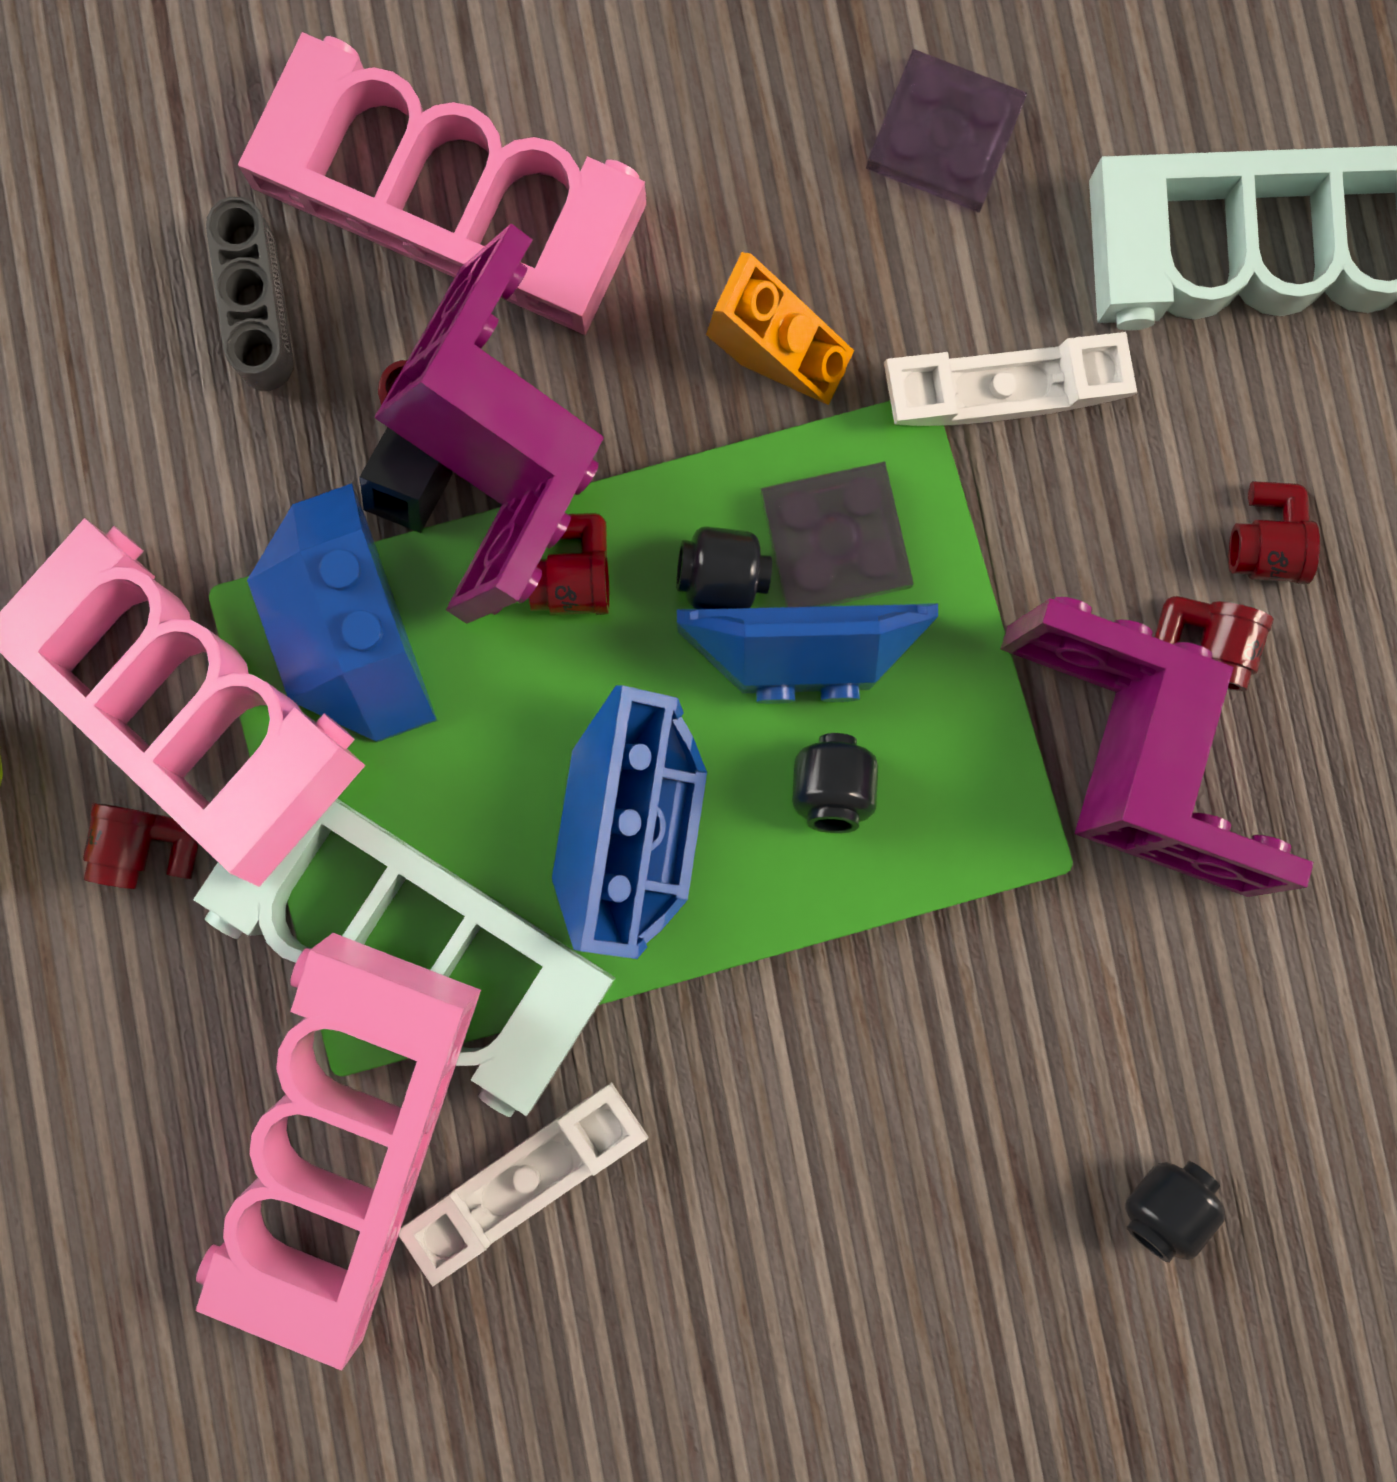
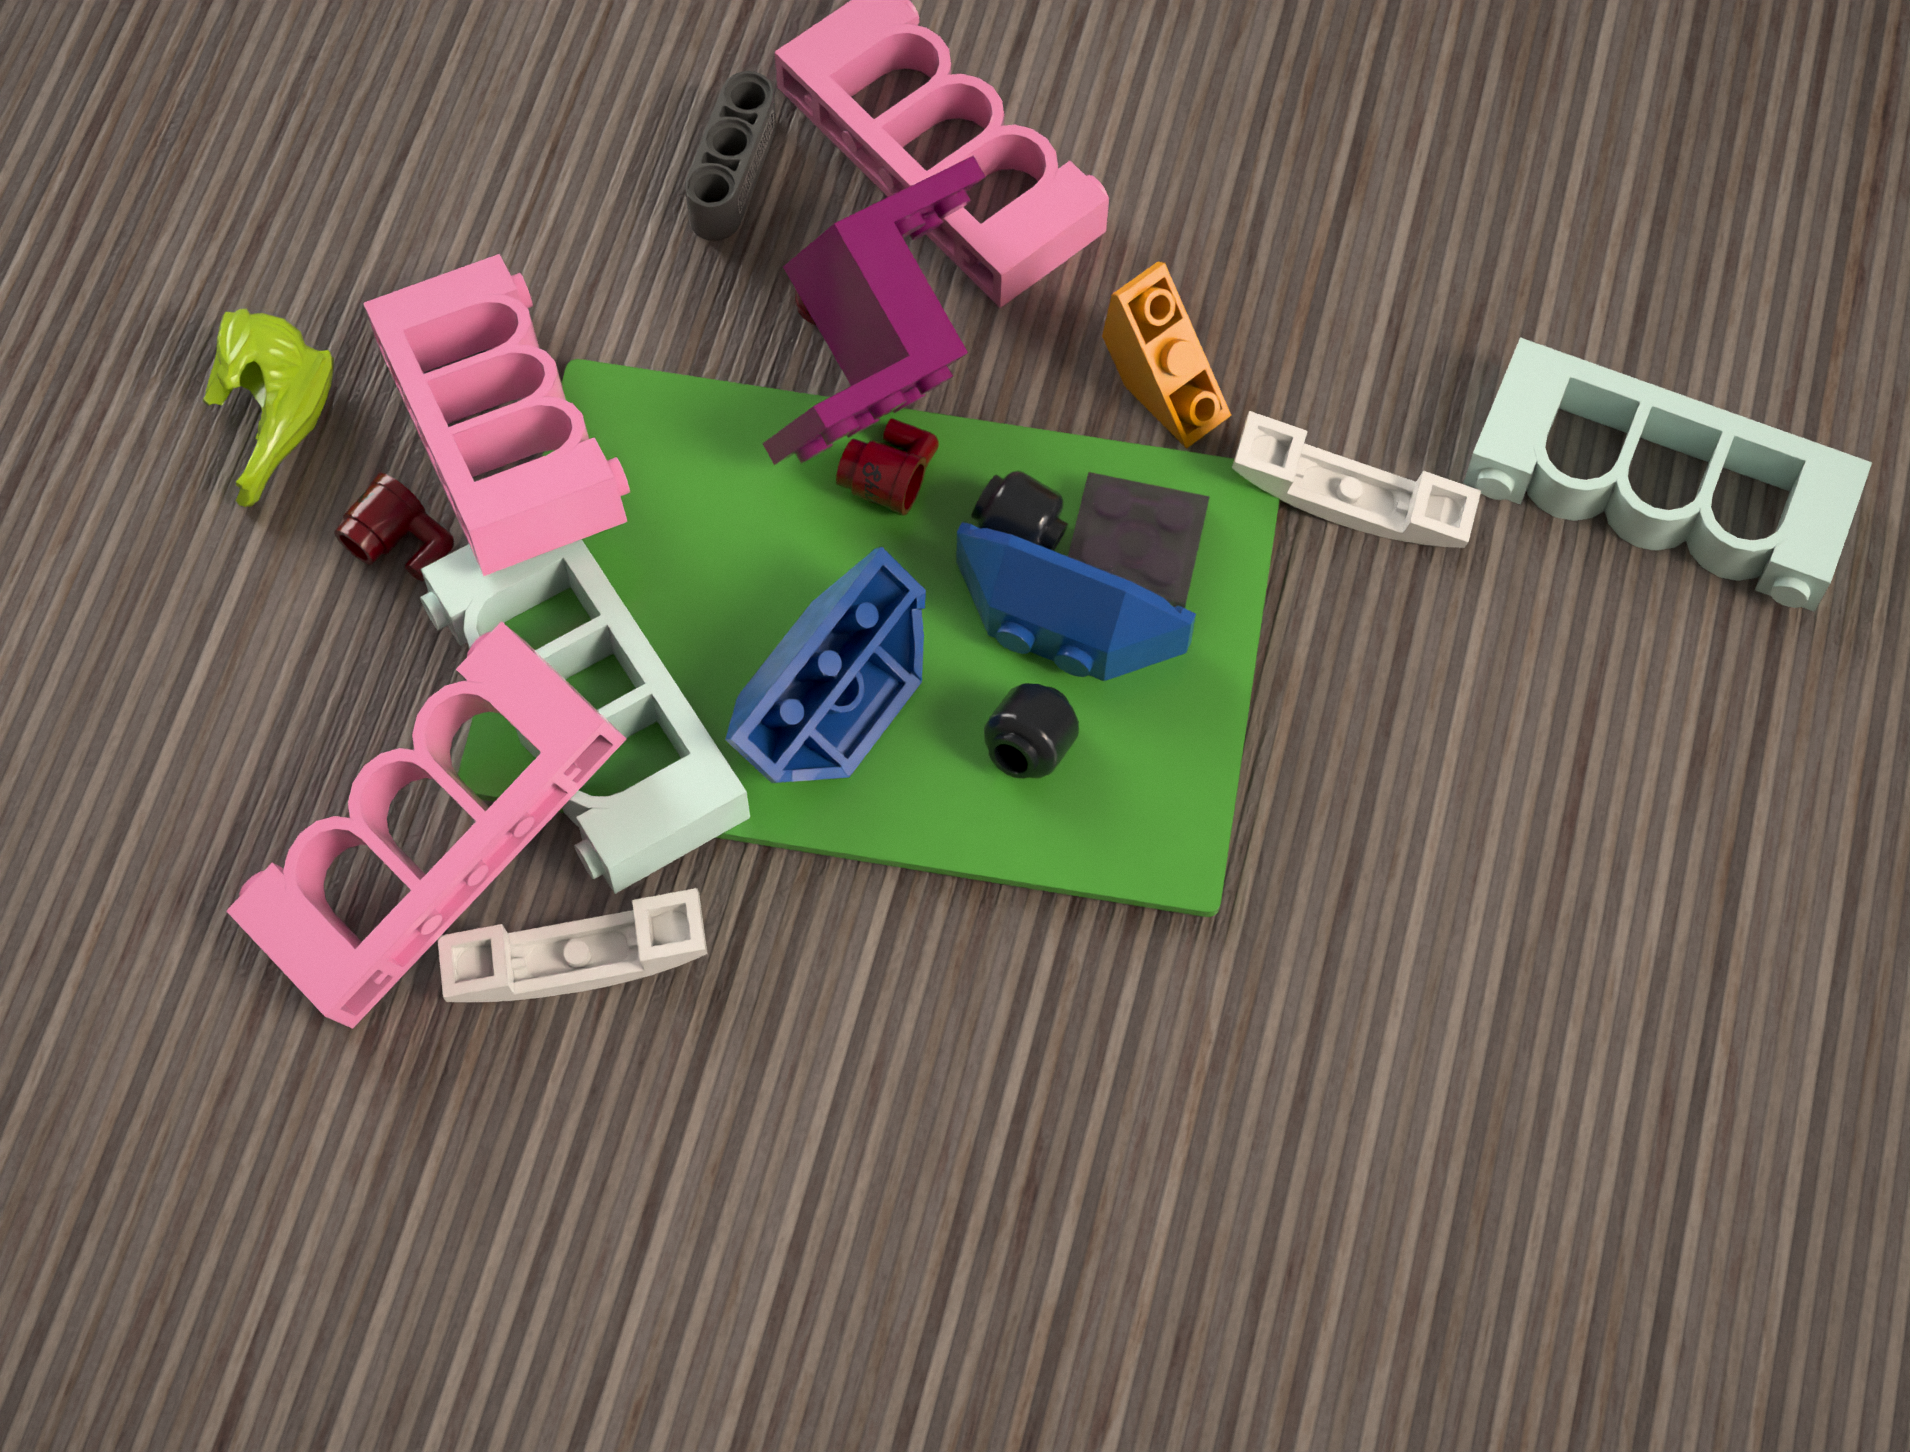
camera: 25 degrees right, 20 degrees down
(338, 621) = (666, 424): blue wedge -> none
(402, 482) = (781, 341): black brick -> none
(946, 130) = (1398, 277): clear purple plate -> none
(1154, 747) = (1367, 779): magenta bracket -> none
(1175, 1210) = (1166, 1249): black head -> none
(1231, 633) = (1458, 782): dark red piece -> none
(1277, 548) = (1538, 721): dark red piece -> none

